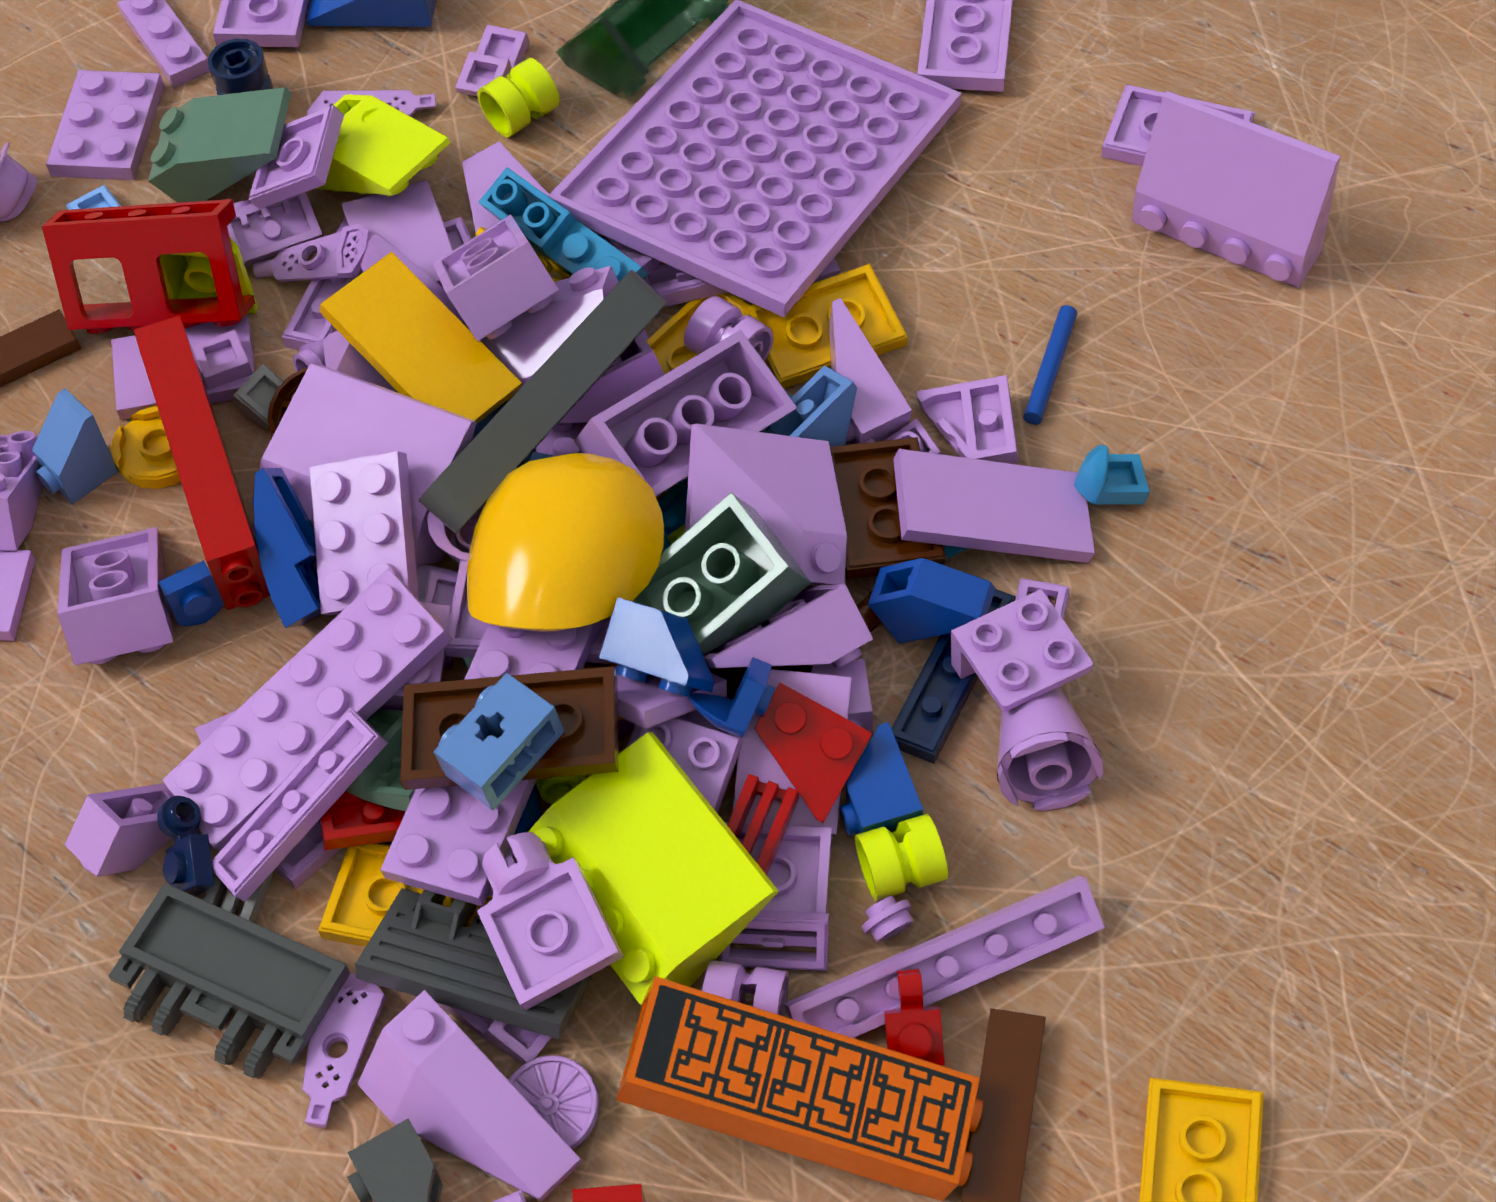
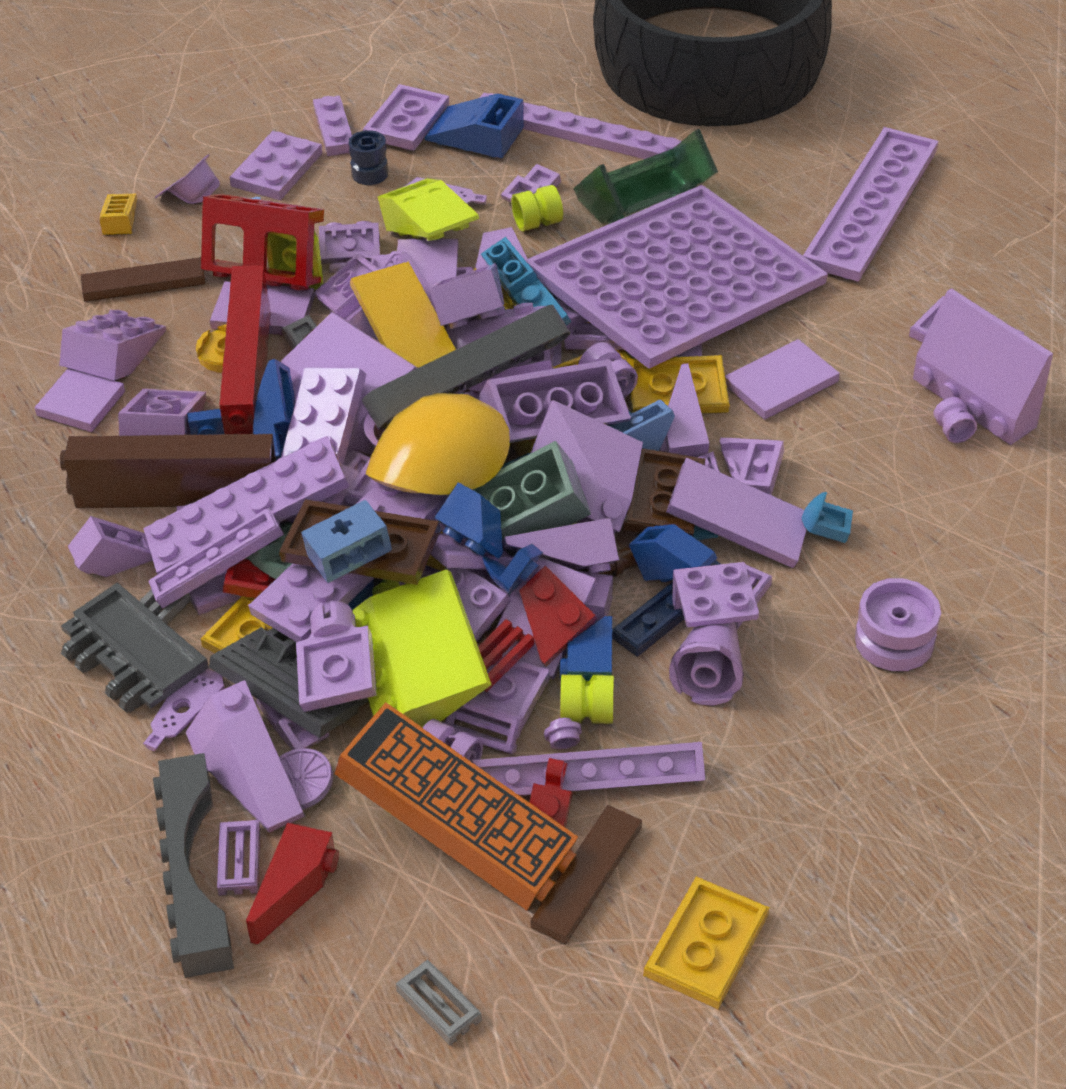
camera: 15 degrees right, 10 degrees down
(71, 450) = (171, 332): medium blue slope -> none
(155, 680) = (159, 467): none -> reddish brown brick
(189, 859) = (138, 575): dark blue plate -> none
(217, 142) = (336, 182): sand green slope -> none
(222, 359) = (285, 307): lavender tile -> none
(293, 304) = (336, 291): none -> lavender tile
(301, 160) = (378, 201): lavender tile -> none
(960, 274) = (781, 379): none -> lavender tile
(1050, 365) = (818, 446): blue bar -> none
(1218, 274) = (954, 418): none -> lavender wheel
(1269, 614) = (897, 624): none -> lavender wheel

